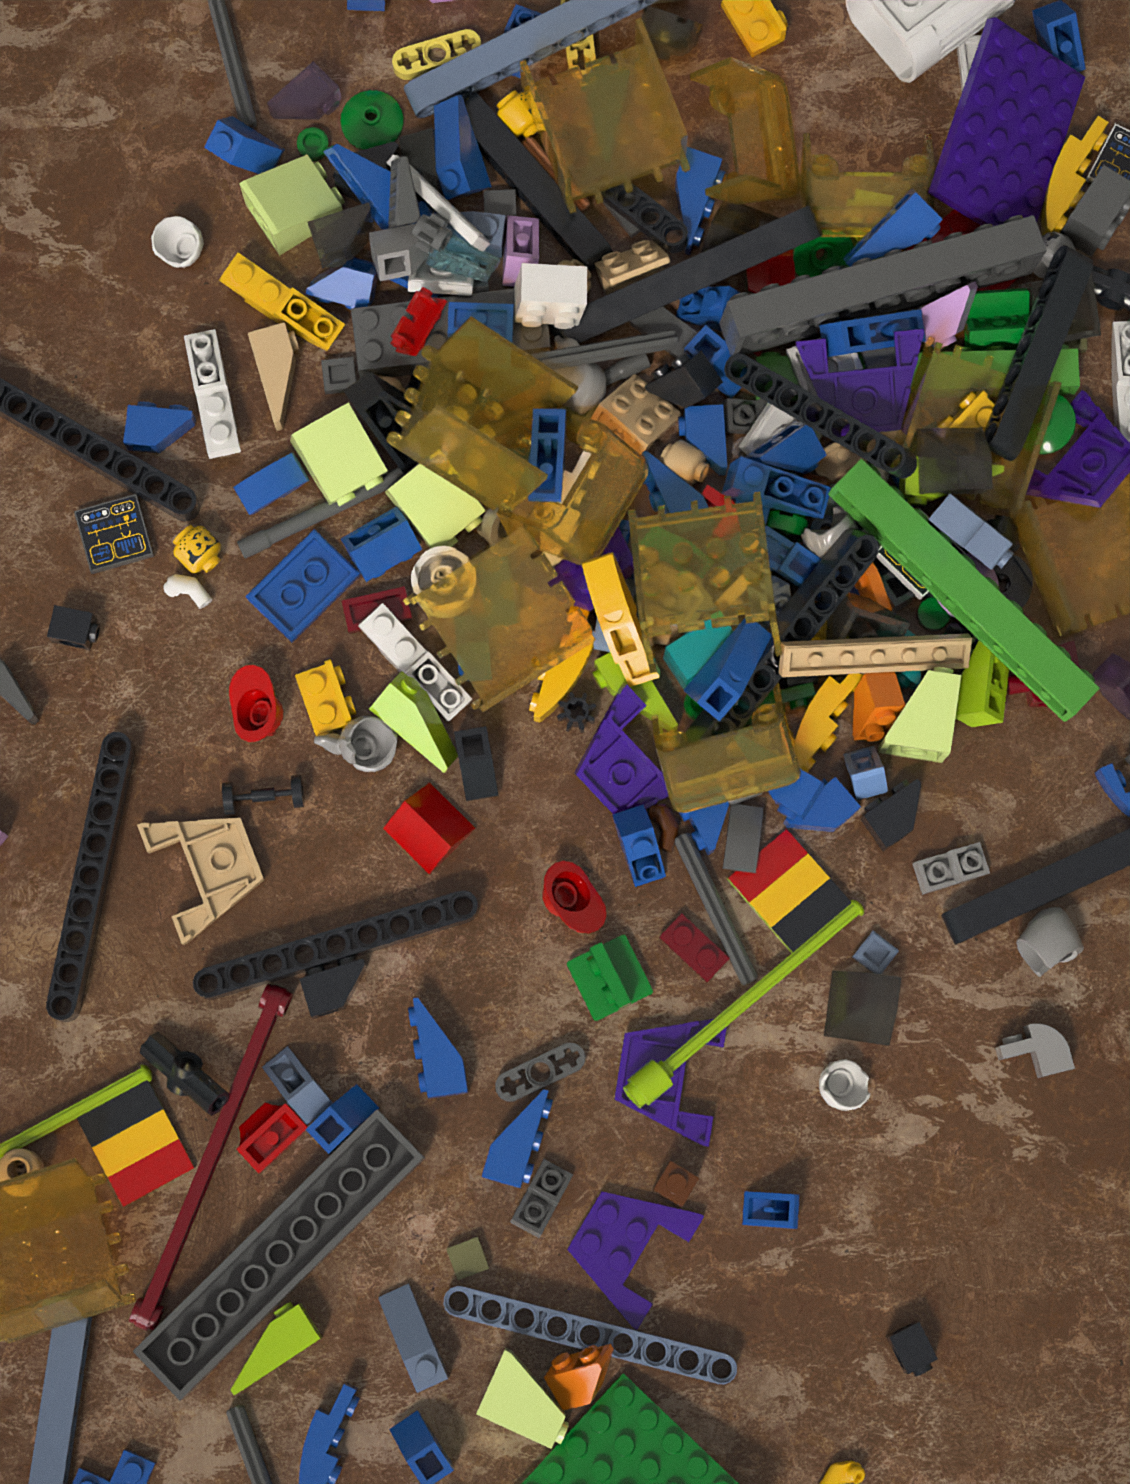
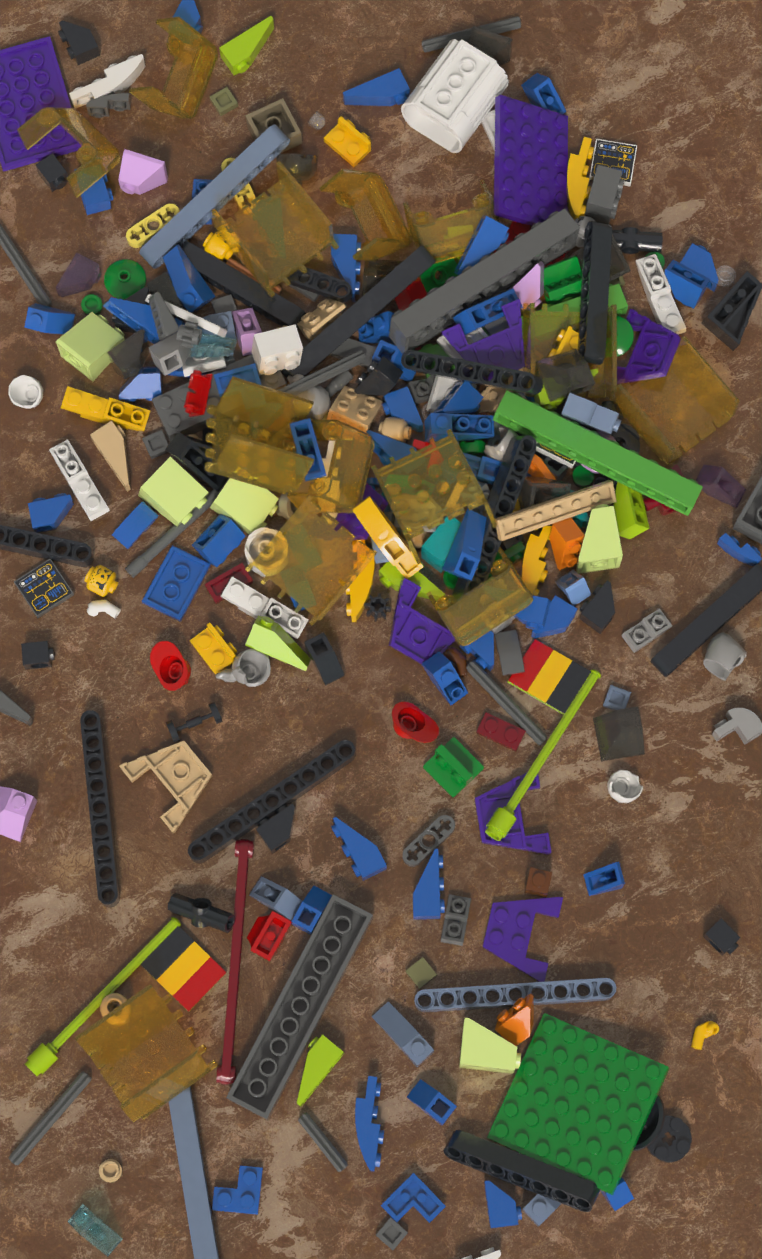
camera: 15 degrees left, 5 degrees down
(428, 827) = (306, 710): red slope -> none

